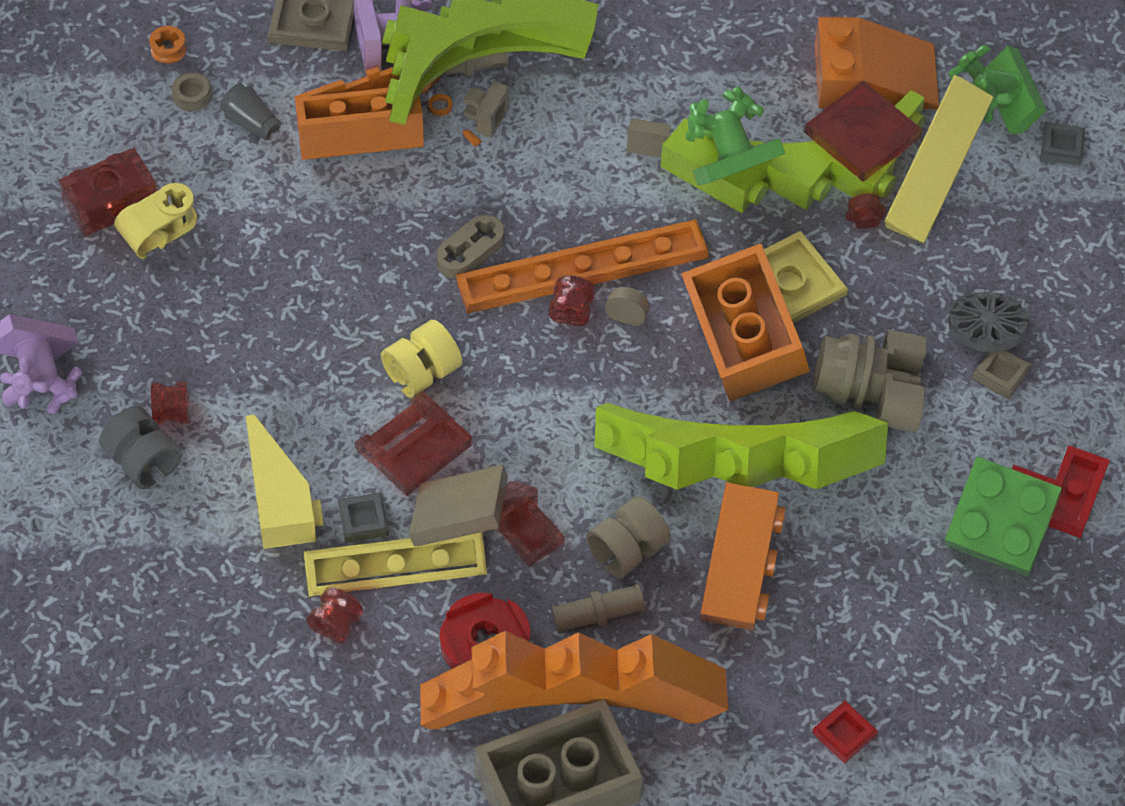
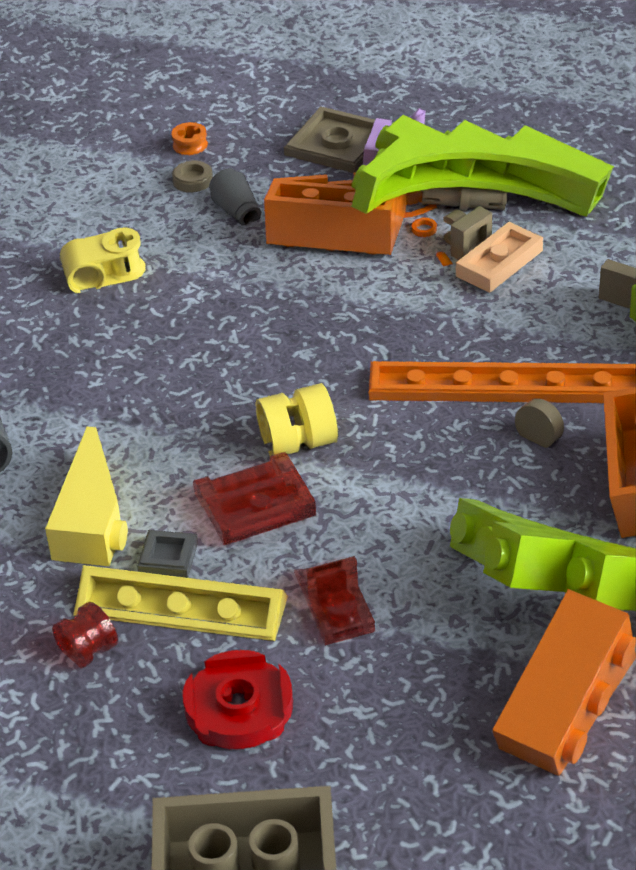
camera: 25 degrees right, 15 degrees down
(87, 196) = (55, 224): clear red brick -> none
(170, 402) = (27, 407): clear red wheel -> none
(458, 505) = (265, 557): dark tan tile -> none
(466, 241) = (398, 341): dark tan beam -> none
(525, 128) = (499, 257): none -> light nougat plate
(571, 300) = (480, 405): clear red wheel -> none
(576, 670) = (310, 743): orange arch -> none
(598, 608) = (380, 702): dark tan pin -> none
(634, 534) = (451, 633): dark tan wheel -> none

